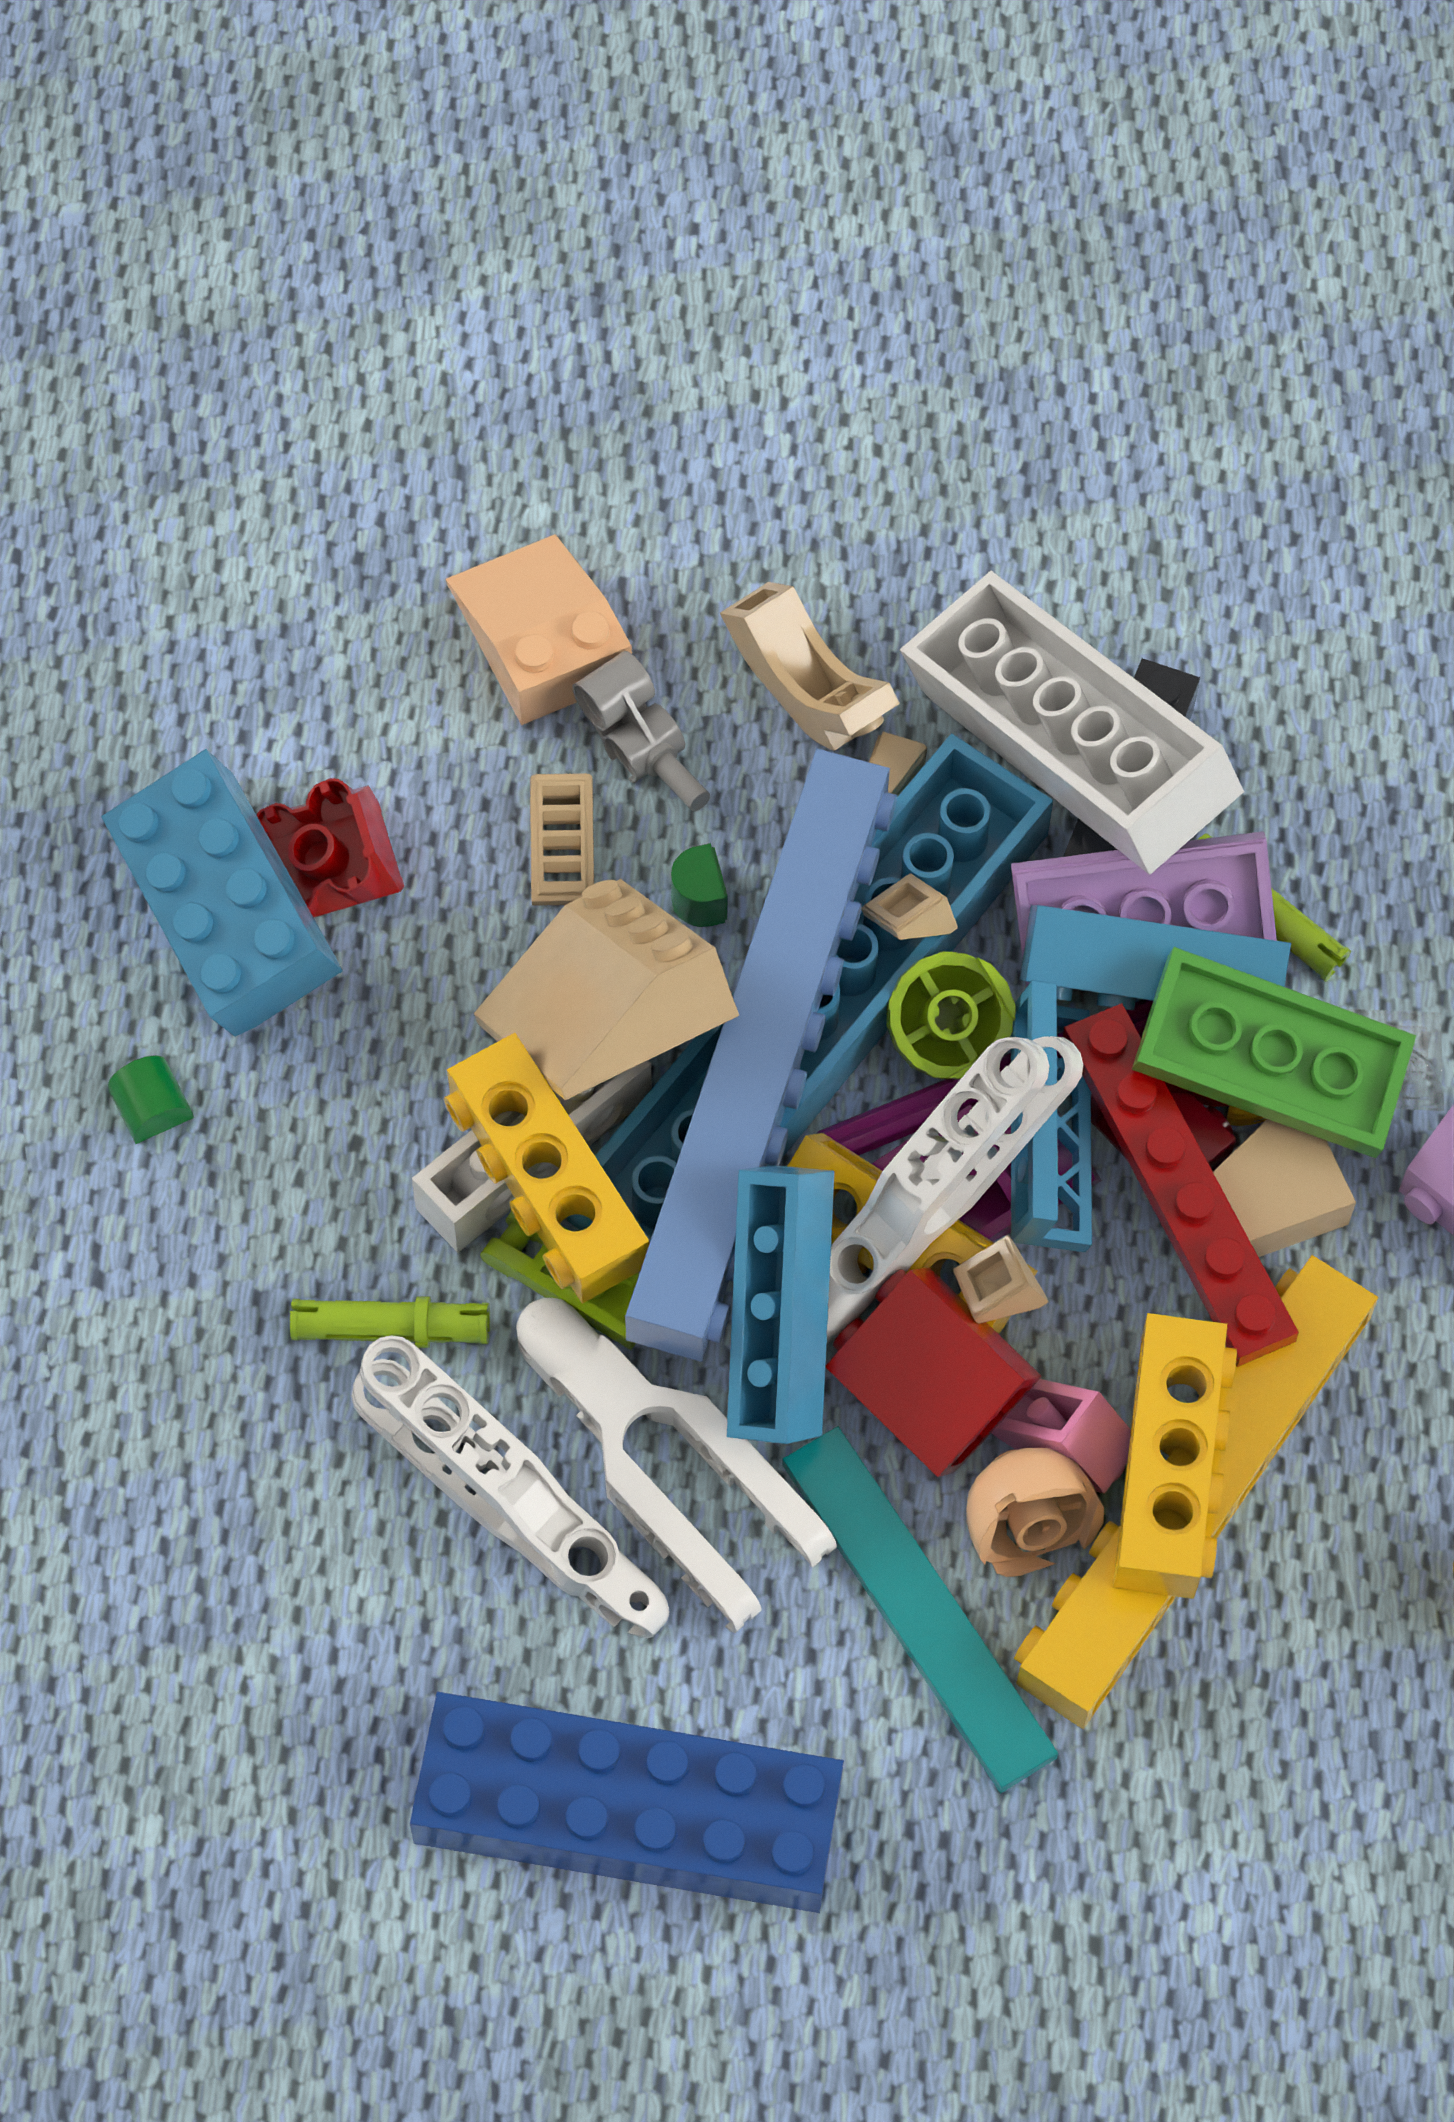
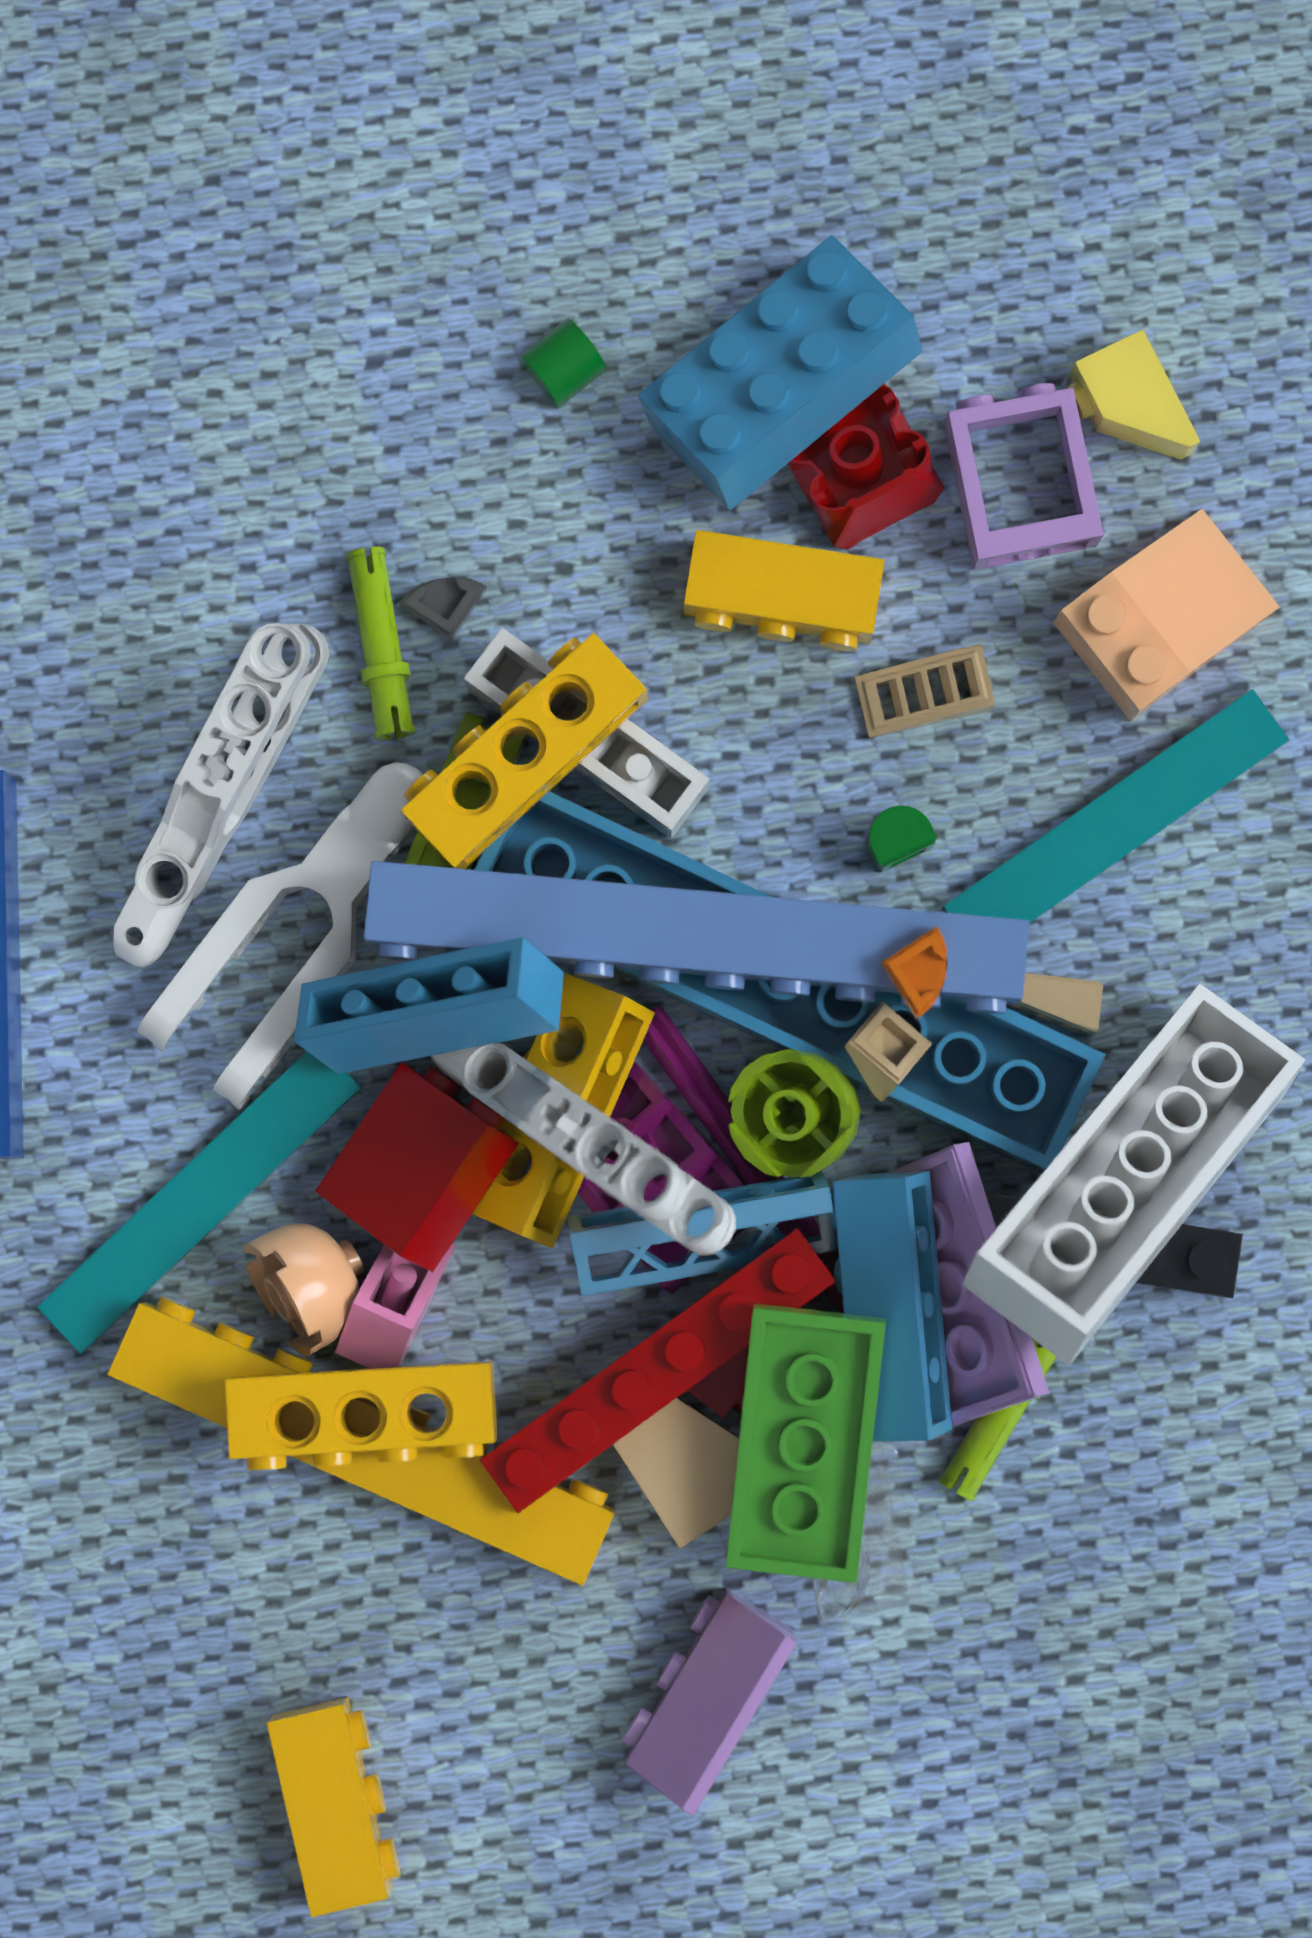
camera: 80 degrees right, 20 degrees up
(328, 606) = (1132, 398): none -> light yellow slope
(363, 1257) = (444, 603): none -> dark grey tile
(377, 759) = (1033, 539): none -> lavender window
(432, 941) = (783, 590): none -> yellow brick
(608, 989) = (725, 767): tan slope -> none
(636, 734) = (1058, 739): light grey beam -> none
(720, 696) = (1126, 814): none -> teal tile
(801, 669) = (1164, 893): tan arch -> none
(845, 845) = (919, 971): none -> orange tile
(999, 1283) = (505, 1213): tan slope -> none

